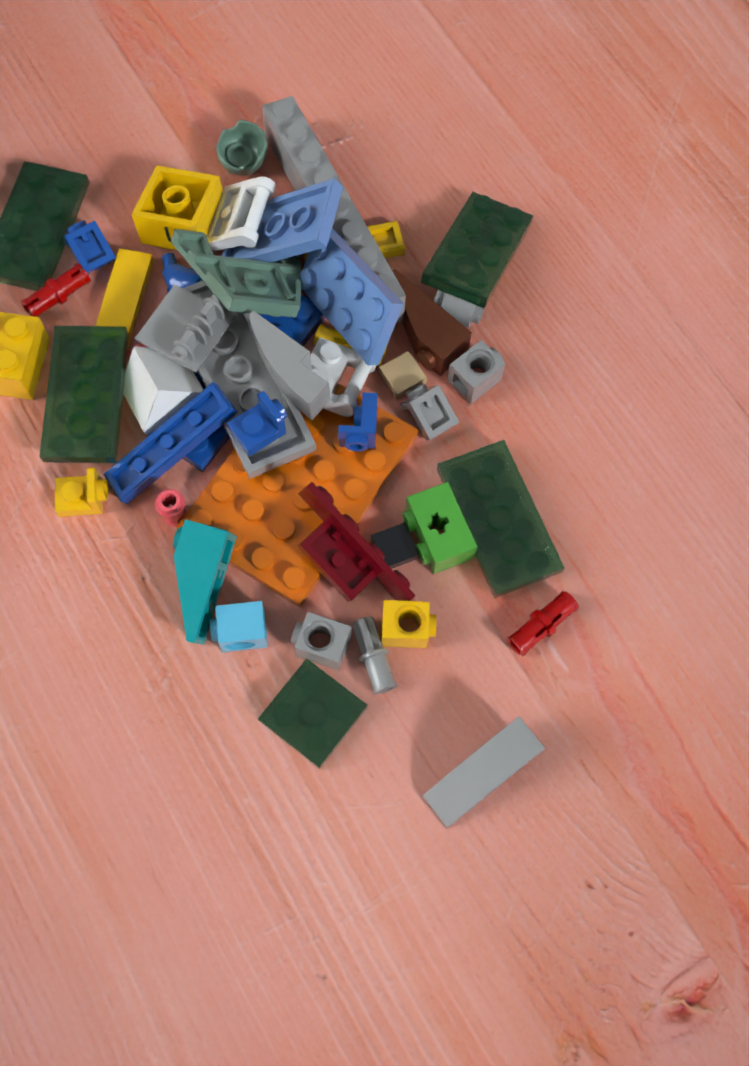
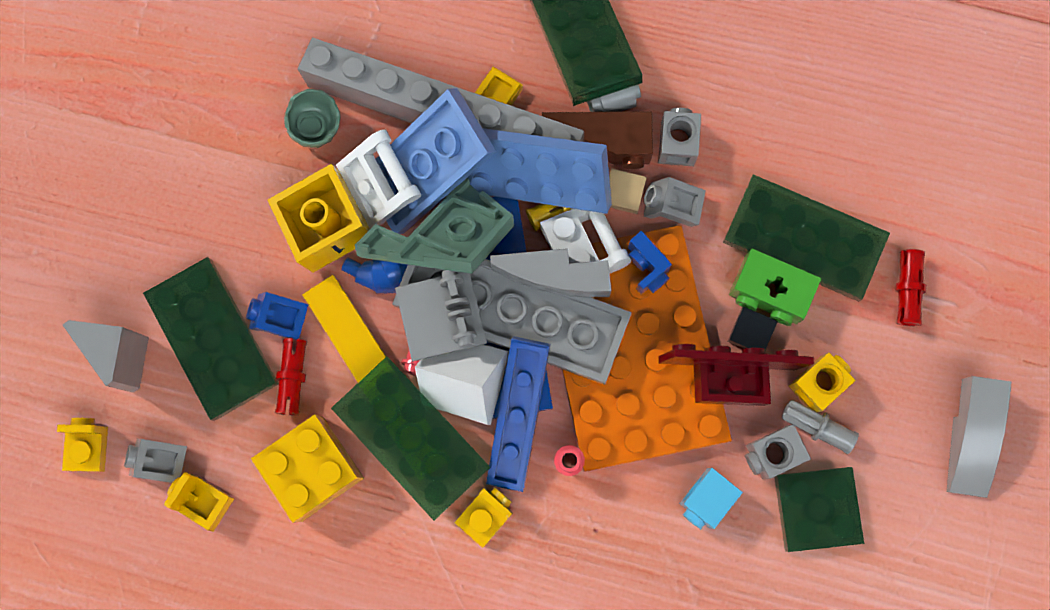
camera: 35 degrees left, 10 degrees up
(200, 567) = (641, 486): teal slope -> none
(259, 424) = (579, 339): blue bracket -> none

